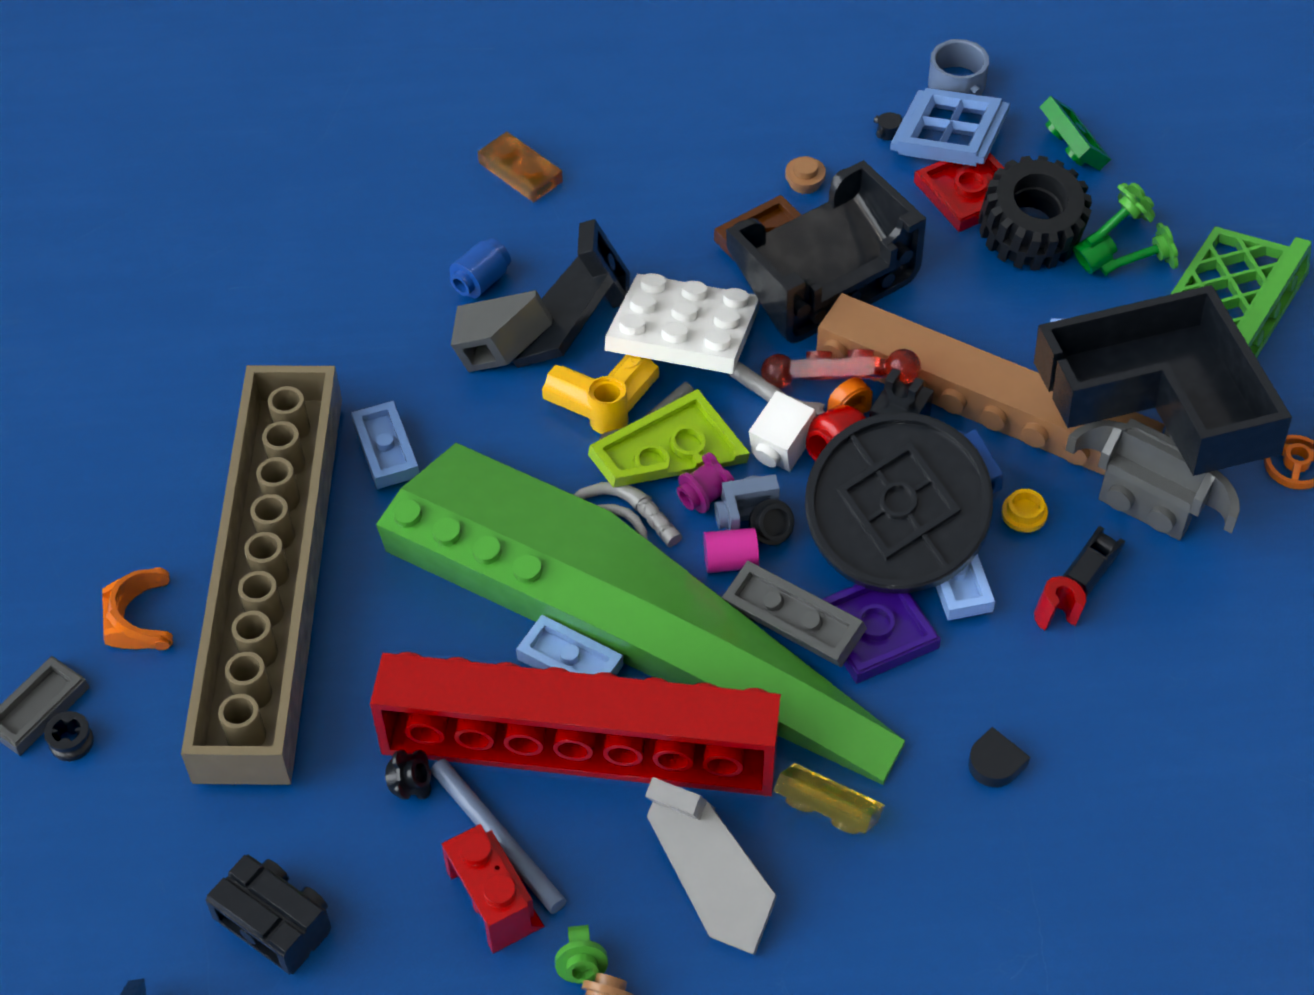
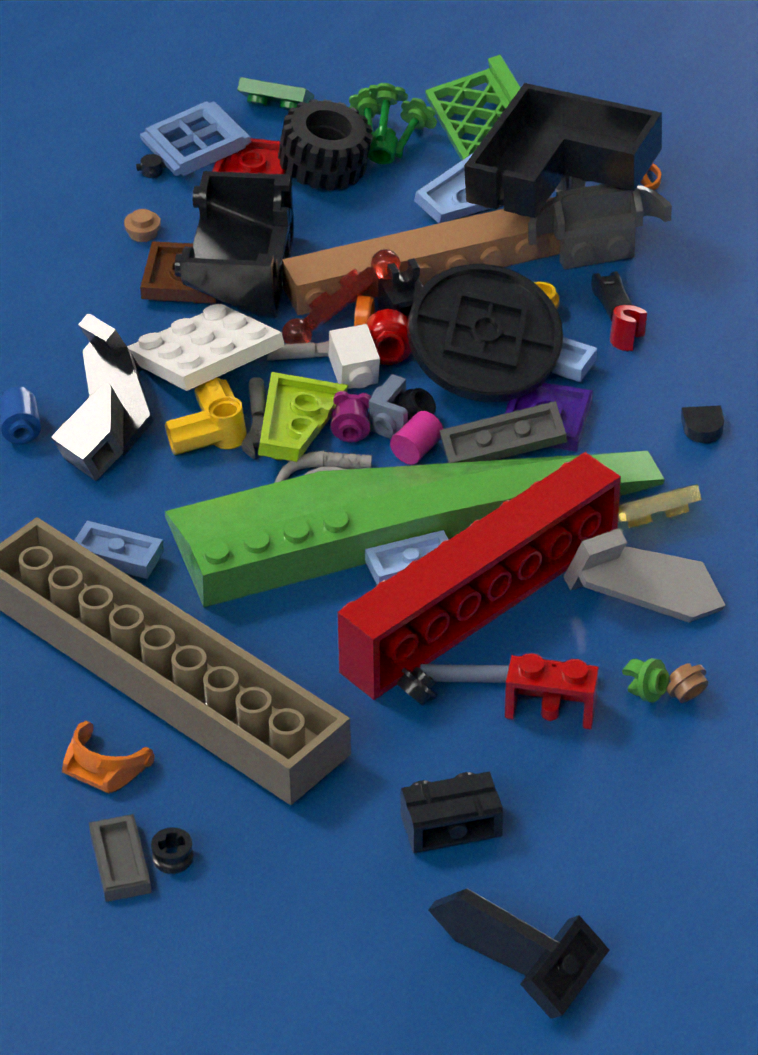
camera: 50 degrees left, 10 degrees down
(959, 54) = (149, 93): sand blue piece -> none

